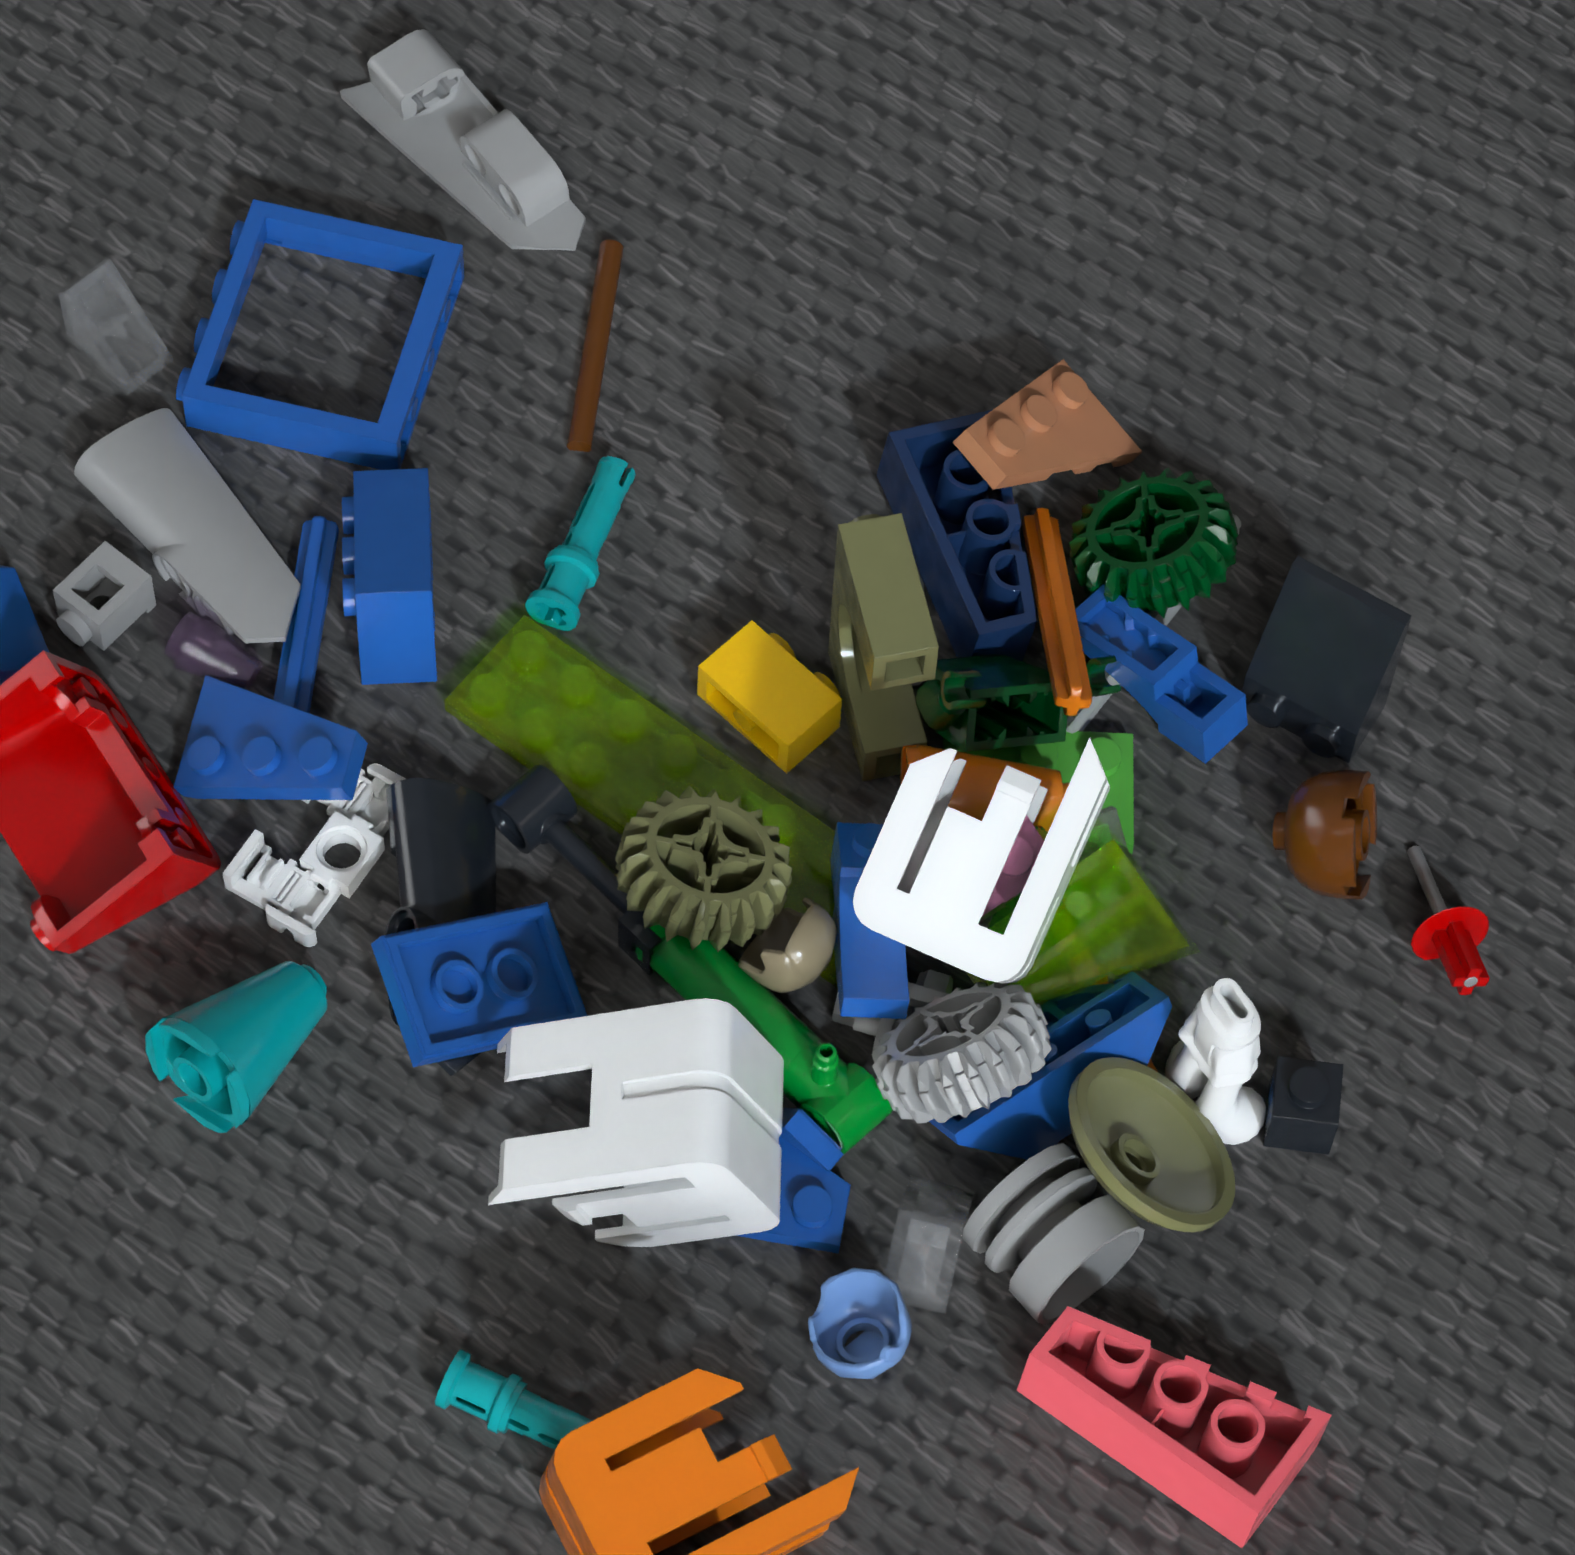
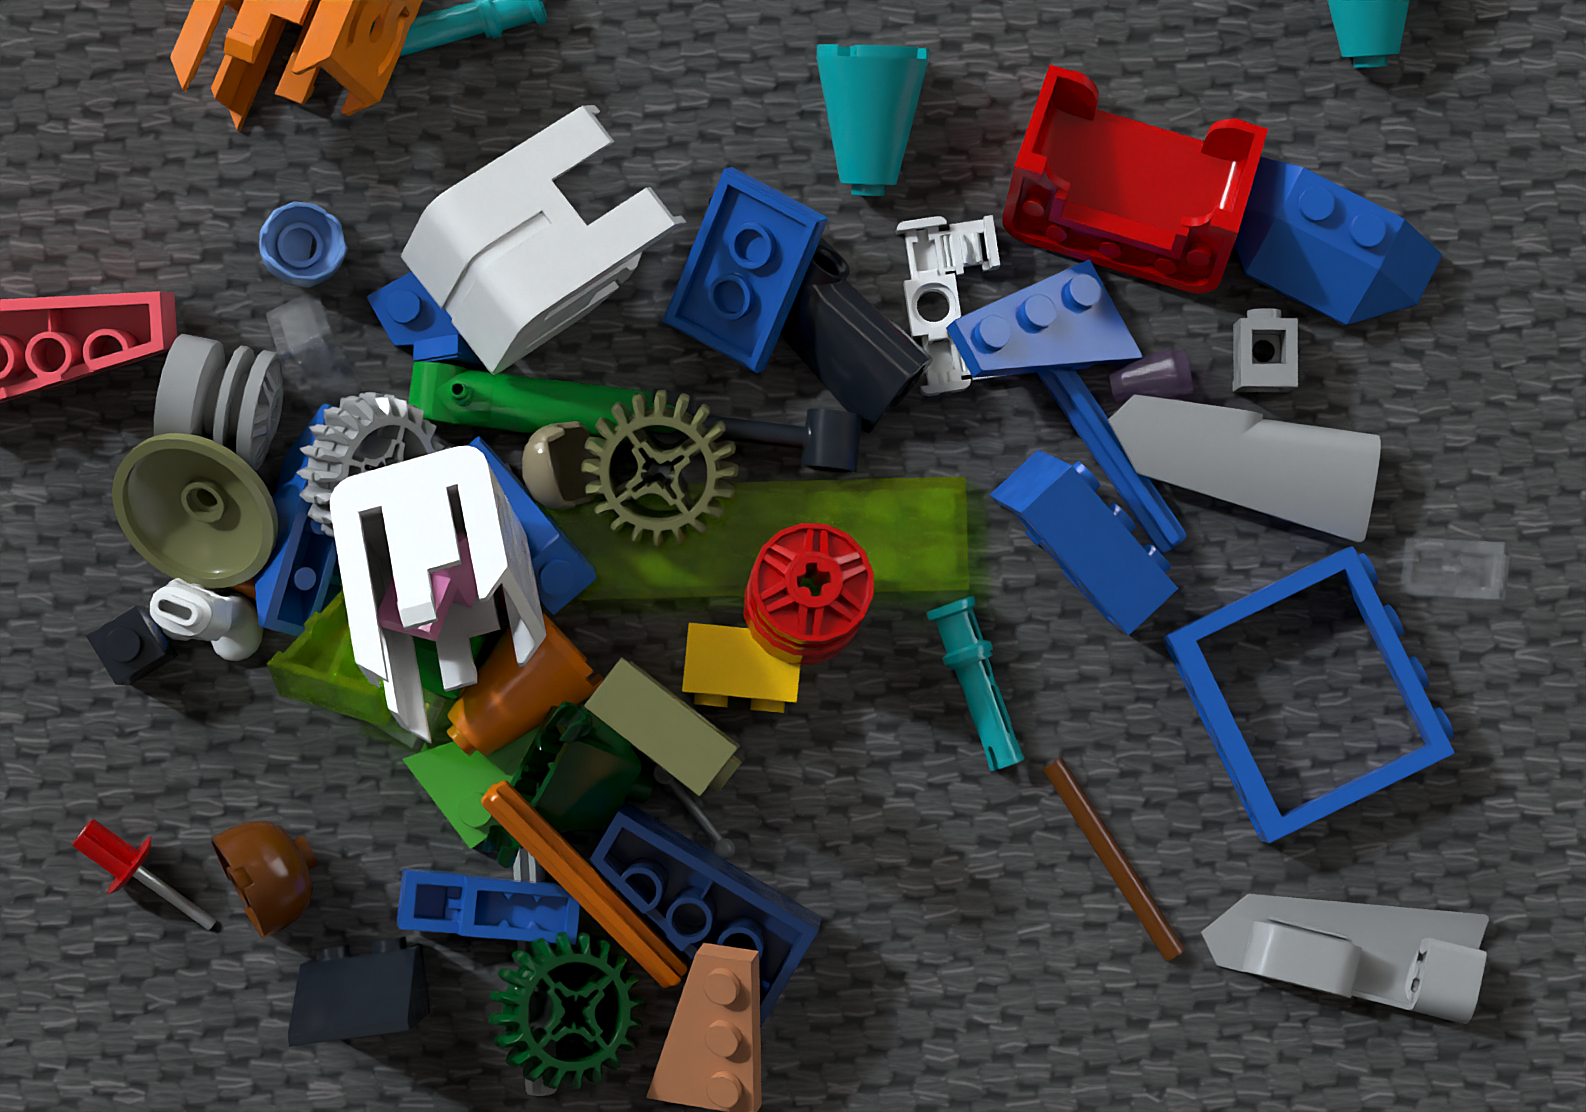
camera: 140 degrees right, 25 degrees up
(667, 669) = (786, 616): none -> red wheel

